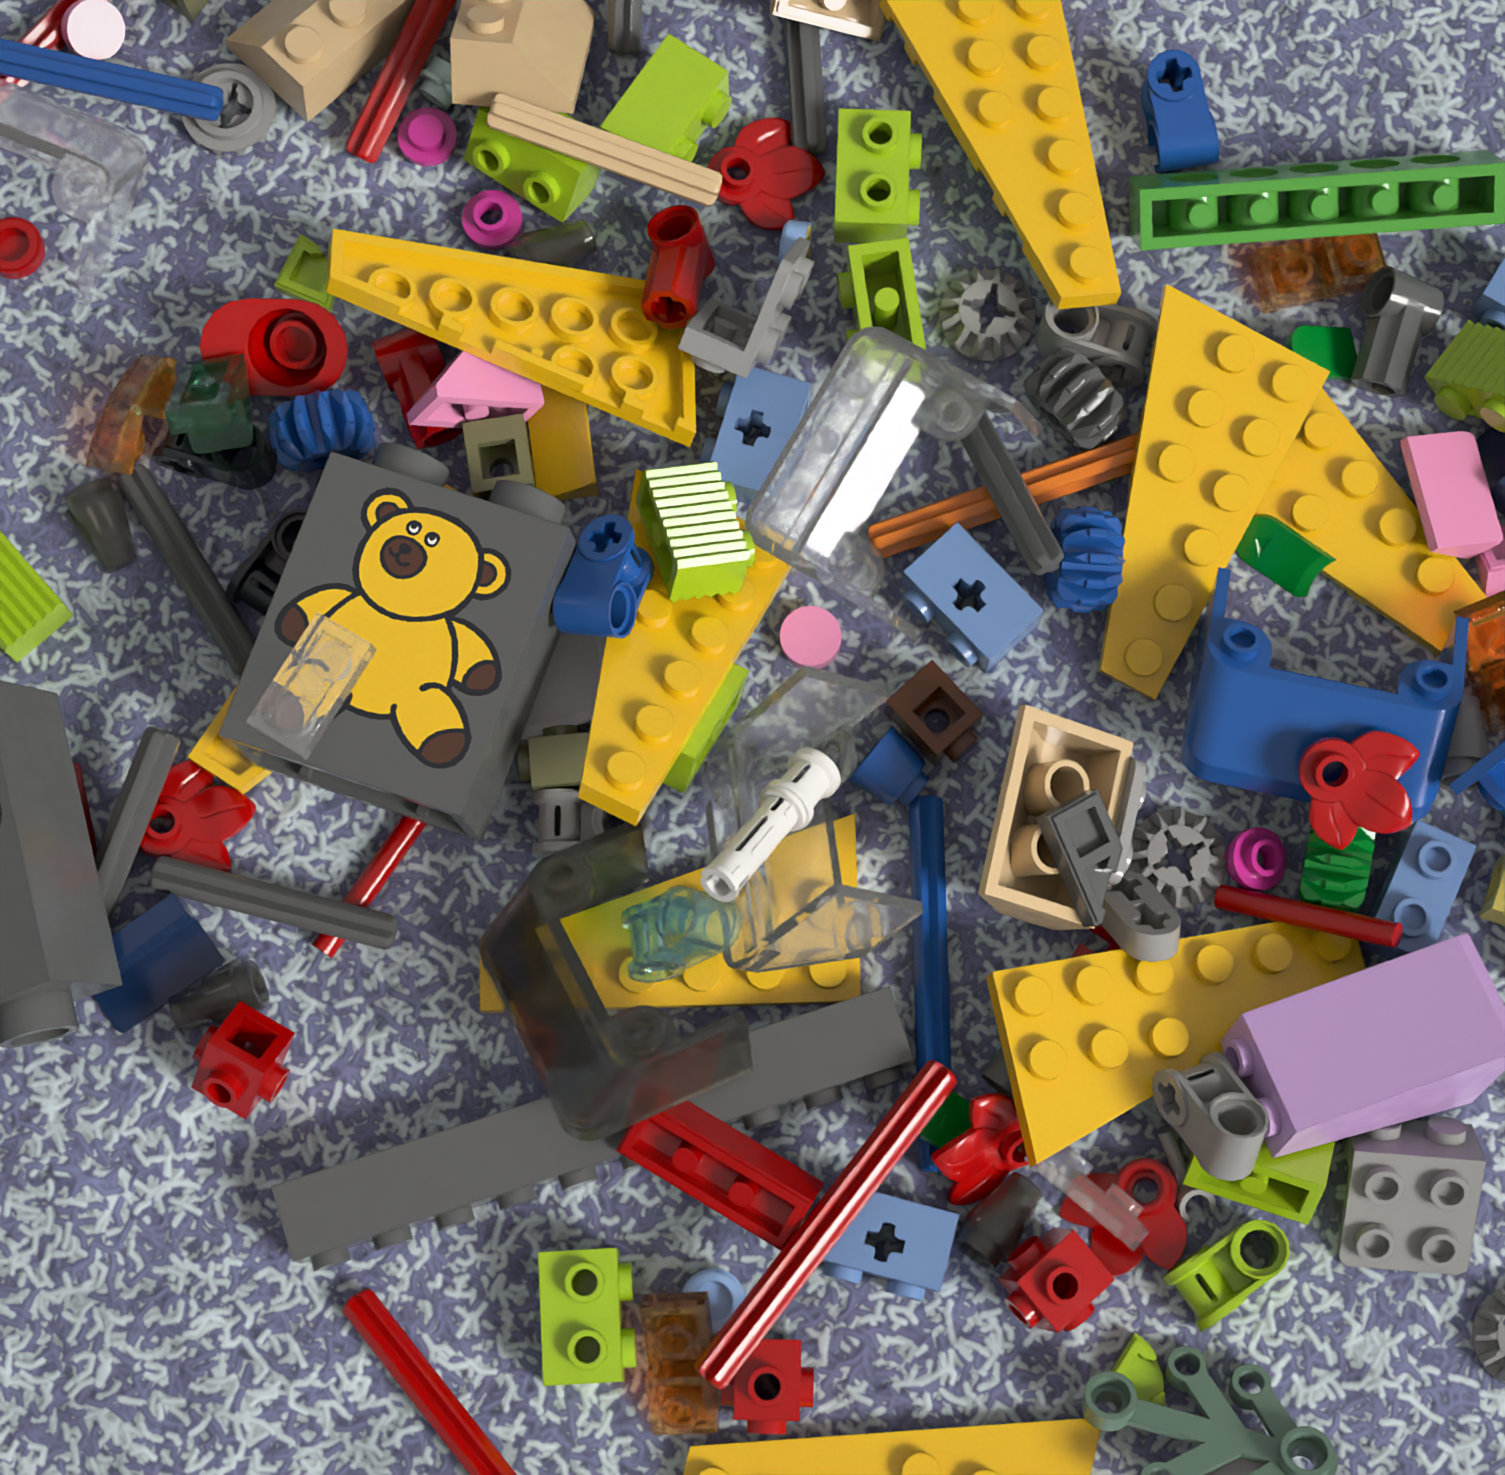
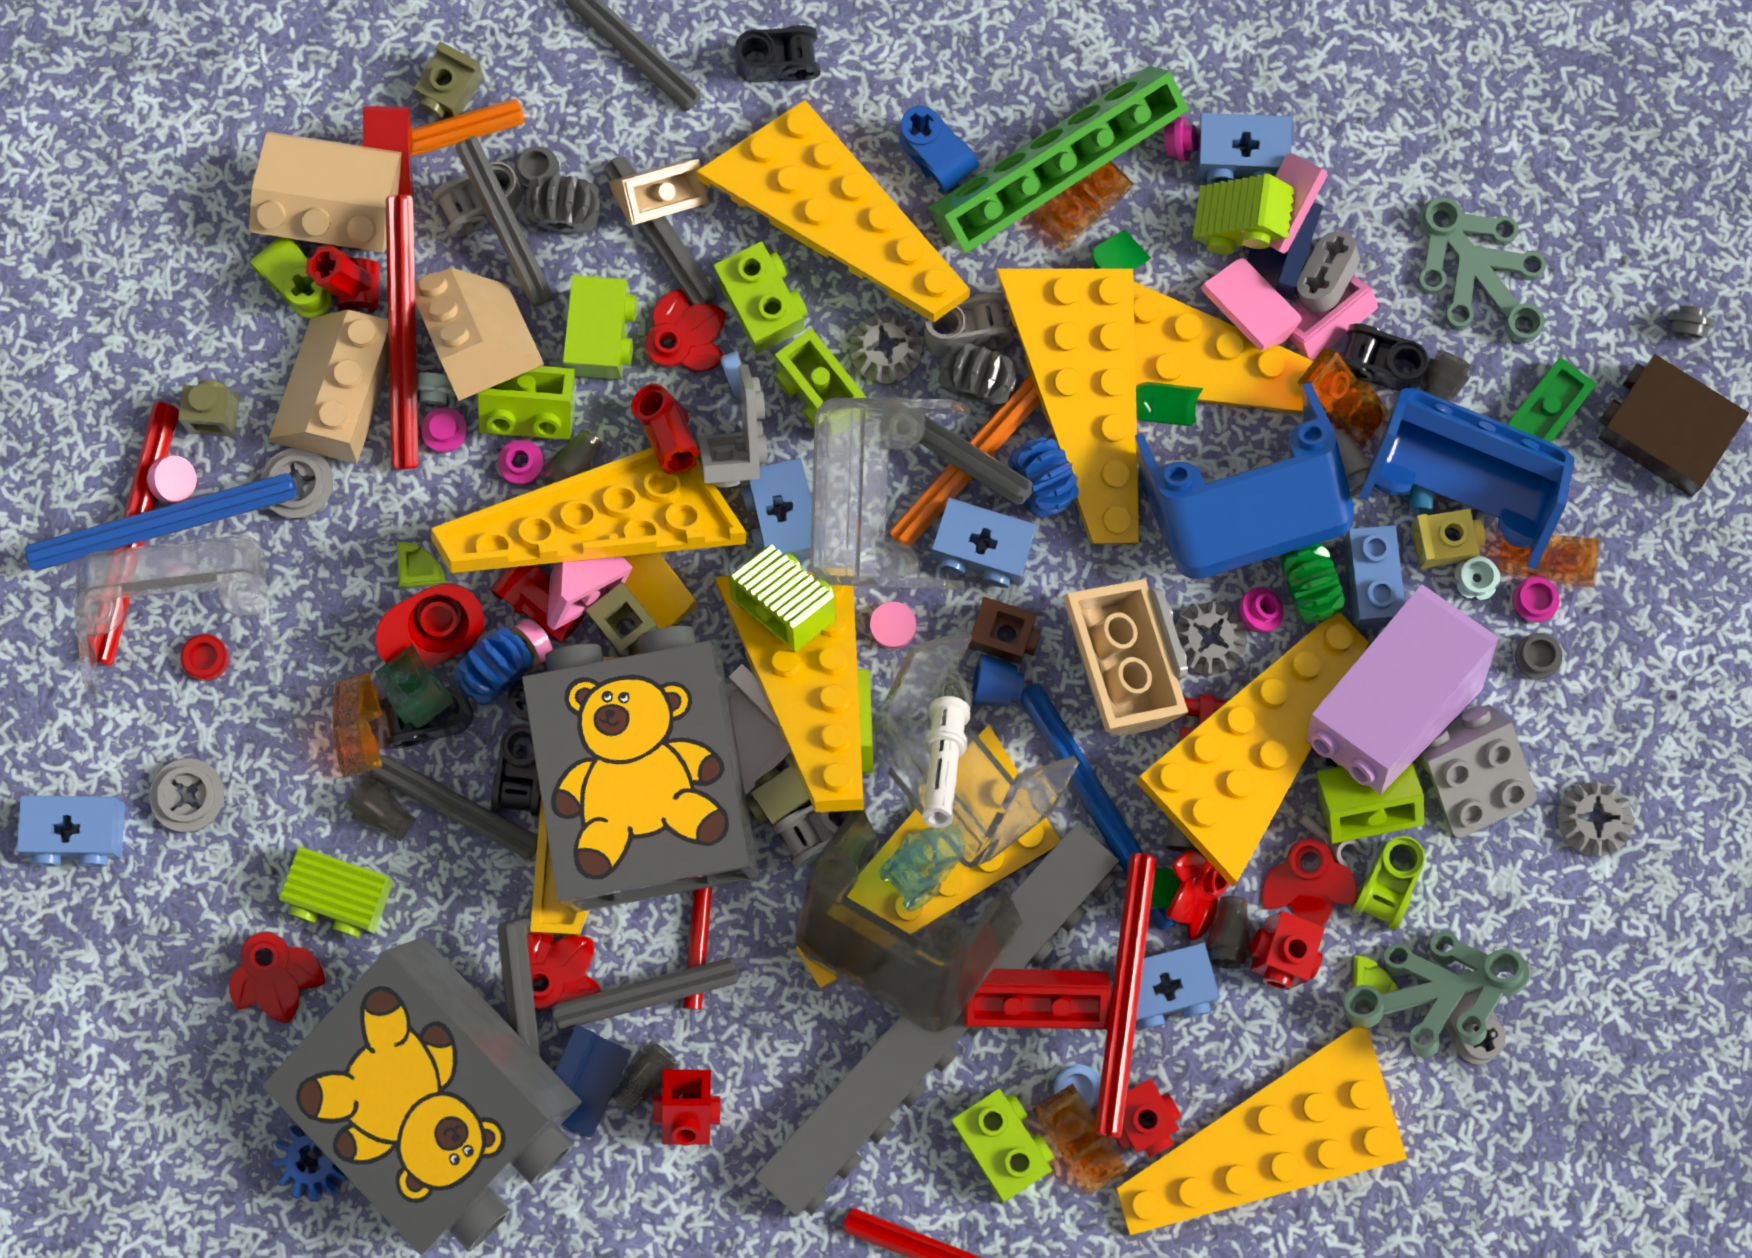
camera: 30 degrees left, 0 degrees up
(311, 685) = (604, 836): clear plate -> none
(386, 421) = (535, 638): none -> bright pink tile
(603, 581) = (746, 663): blue piece -> none
(604, 150) = (577, 377): tan axle -> none
(1083, 851) = (1155, 666): dark grey tile -> none
(1112, 1209) = (1298, 885): clear plate -> none
(1141, 919) = (1212, 690): light grey beam -> none
(1213, 1115) = (1330, 788): light grey piece -> none
(1308, 916) = (1315, 628): red bar -> none
(1365, 791) = (1309, 529): red plate -> none
(1399, 315) = (1154, 206): dark grey piece -> none
(1476, 255) = (1180, 139): none -> dark pink plate

